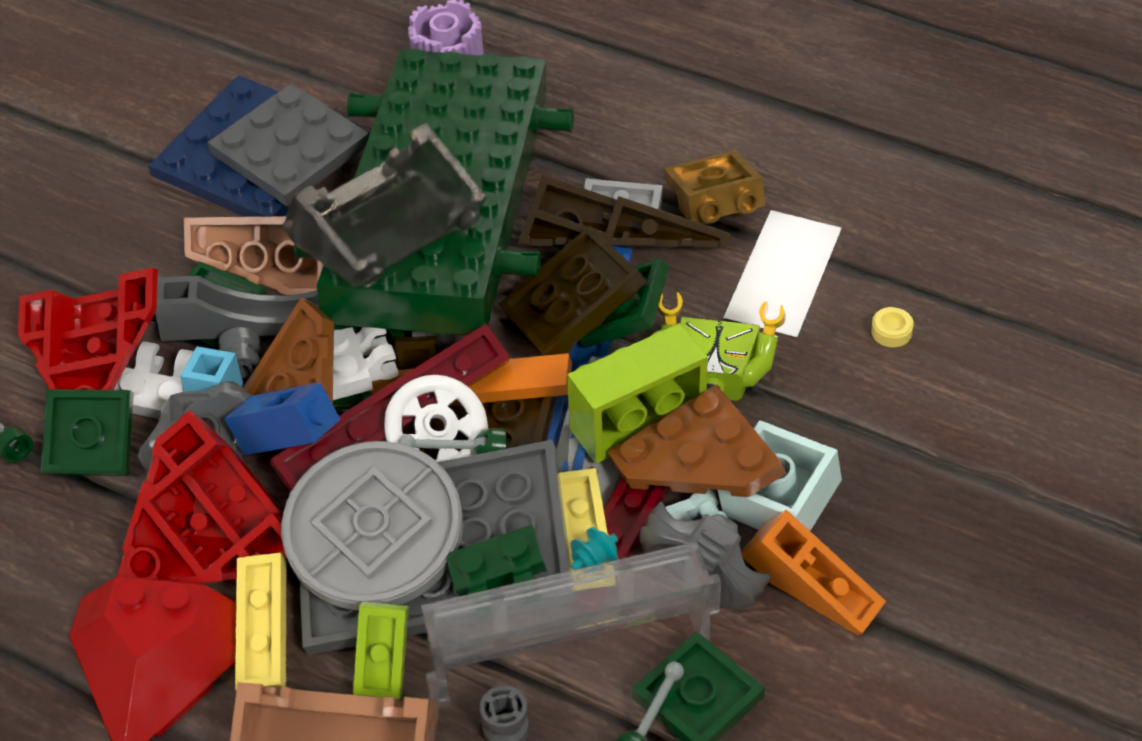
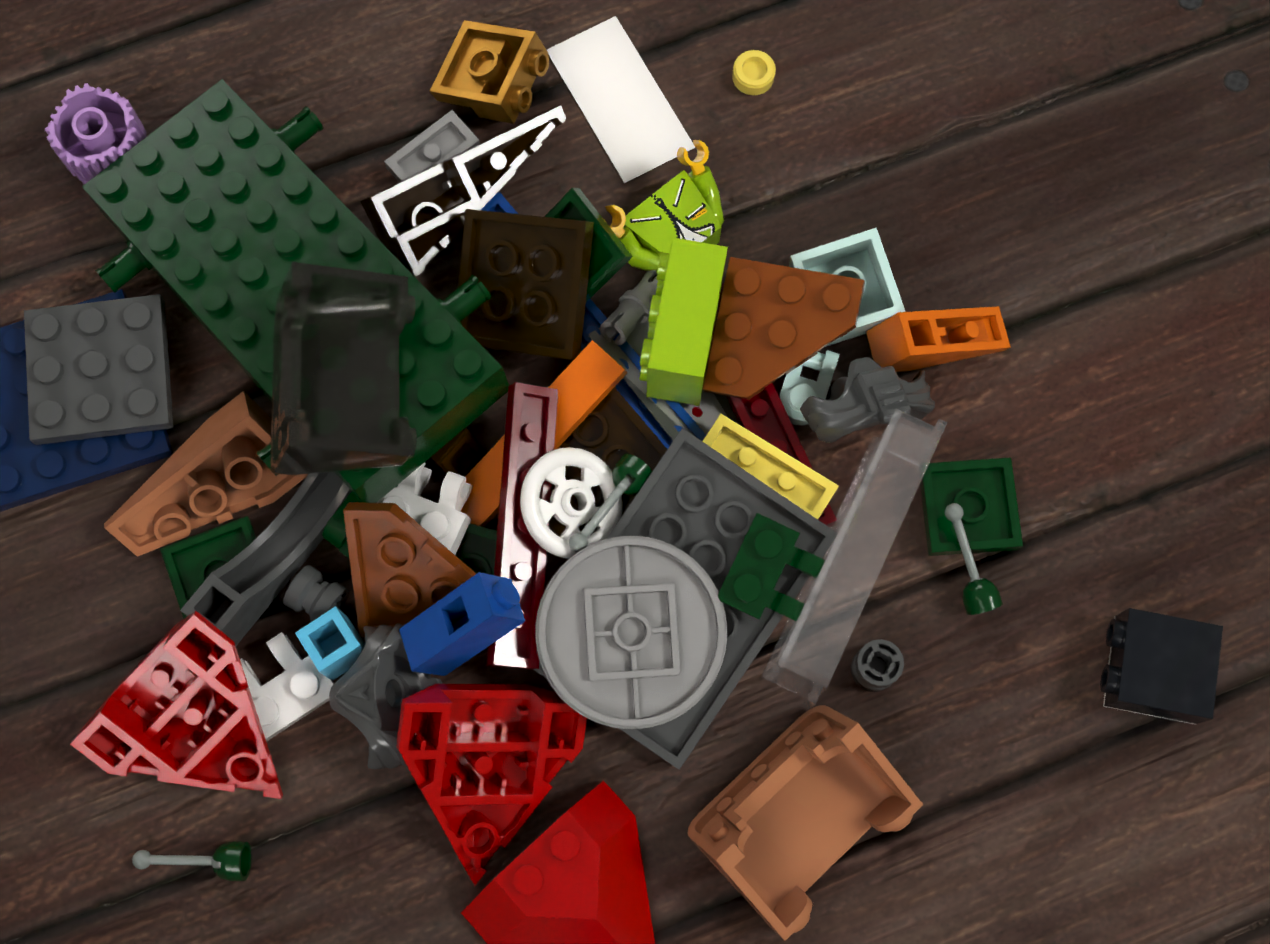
camera: 55 degrees left, 25 degrees up
(87, 432) = (288, 790): dark green tile -> none
(261, 620) = (631, 787): light yellow plate -> none
(380, 650) = (746, 714): lime plate -> none
(597, 550) = (817, 486): teal wheel -> none

